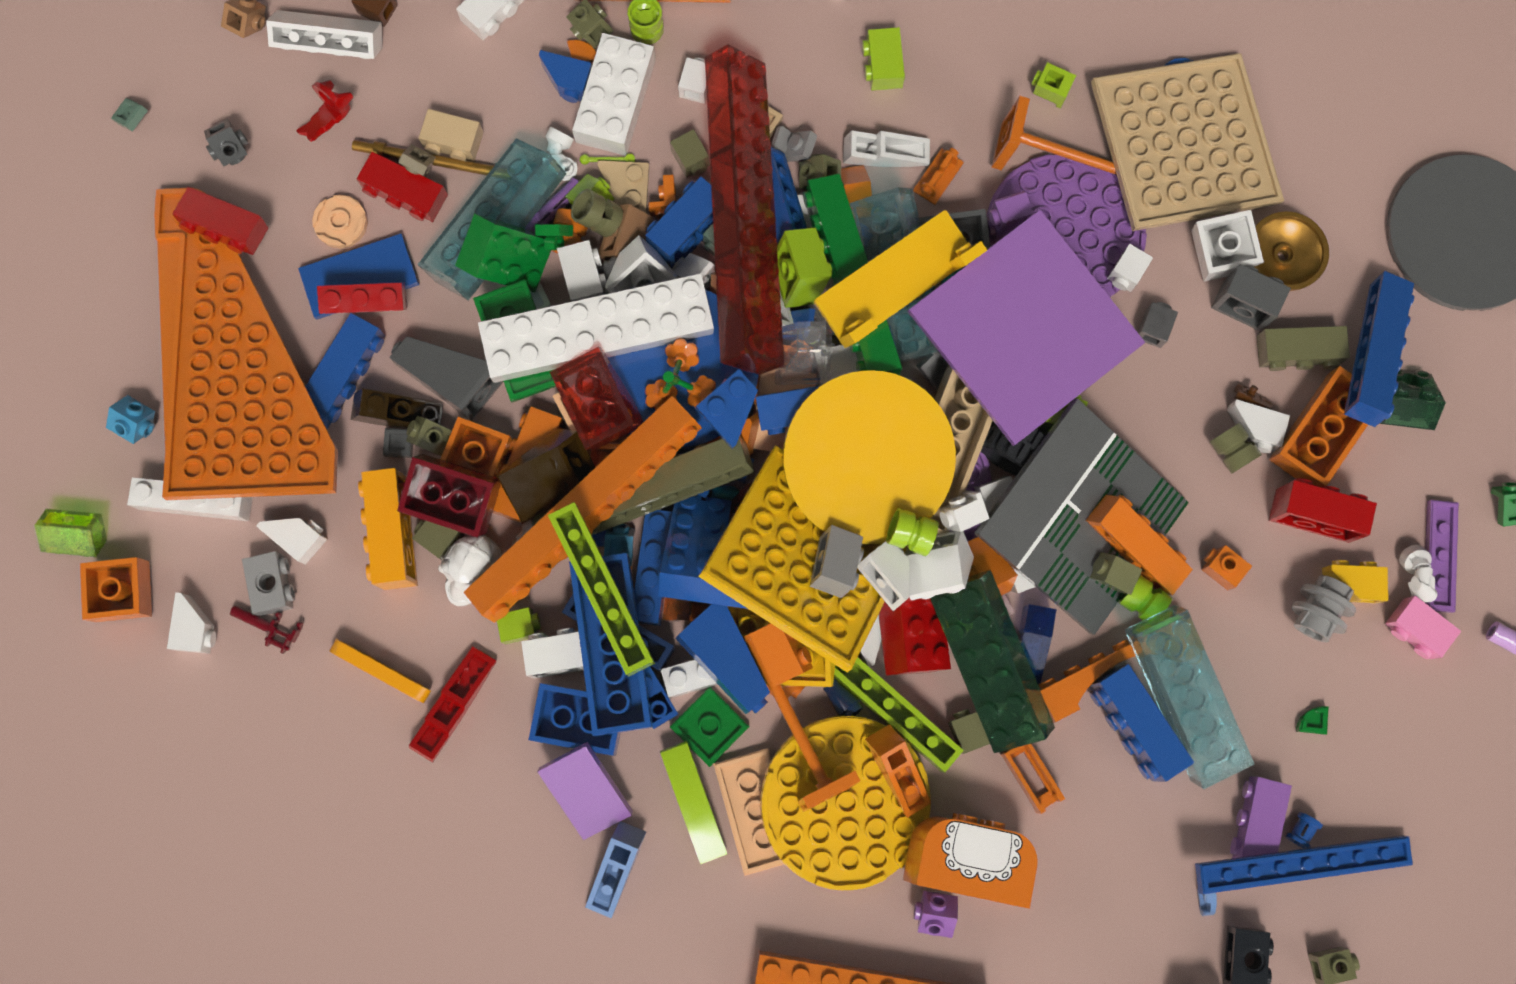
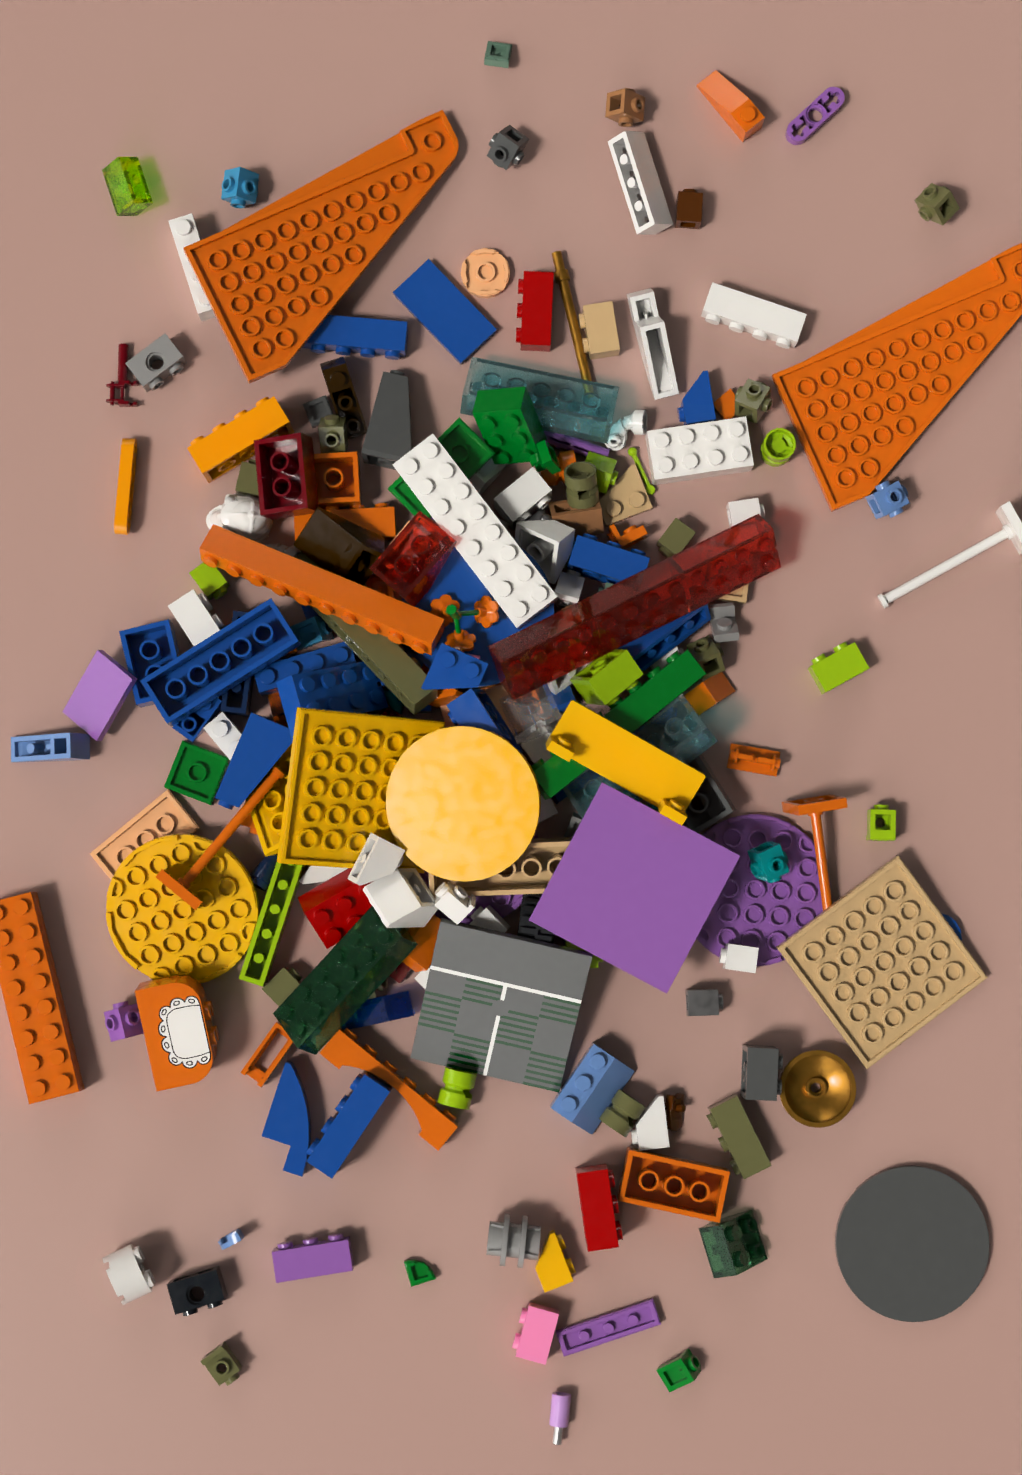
camera: 65 degrees right, 5 degrees up
(115, 589) = (97, 245): orange brick -> none
(190, 627) = (94, 318): white slope -> none
(220, 221) = (434, 178): red brick -> none
(295, 536) = (203, 367): white slope -> none
(331, 112) = (575, 220): red hair -> none
(361, 298) = (423, 325): red brick -> none
(417, 160) = (561, 313): dark tan bracket -> none
(452, 704) = (124, 557): red slope -> none
(488, 91) = (653, 343): none -> white slope
(601, 589) = (256, 634): lime brick -> none
(693, 802) = (129, 786): lime slope -> none
(780, 654) = (269, 802): orange brick -> none
(837, 561) = (363, 814): light grey brick -> none
(886, 149) = (756, 705): white slope -> none
(898, 769) = (224, 940): orange slope -> none
(916, 533) = (415, 866): lime wheel -> none
(1008, 214) = (736, 833): medium lavender brick -> none
(1049, 197) = (768, 862): none -> teal brick
(1110, 785) = (290, 1119): none -> blue slope
(1115, 573) = (465, 1052): olive brick -> none
(1139, 544) = (499, 1061): orange brick -> none
(1189, 695) = (388, 1155): clear light blue brick -> none
(1196, 469) = (591, 1088): none -> medium blue slope
(1225, 244) = (798, 1033): white slope -> none
(1225, 567) = (516, 1145): orange brick -> none
(1303, 864) = (292, 1306): blue tile -> none
(1304, 820) = (327, 1300): blue bush -> none
(1380, 349) = (760, 1200): blue brick -> none
(1417, 561) = (592, 1306): white arm -> none

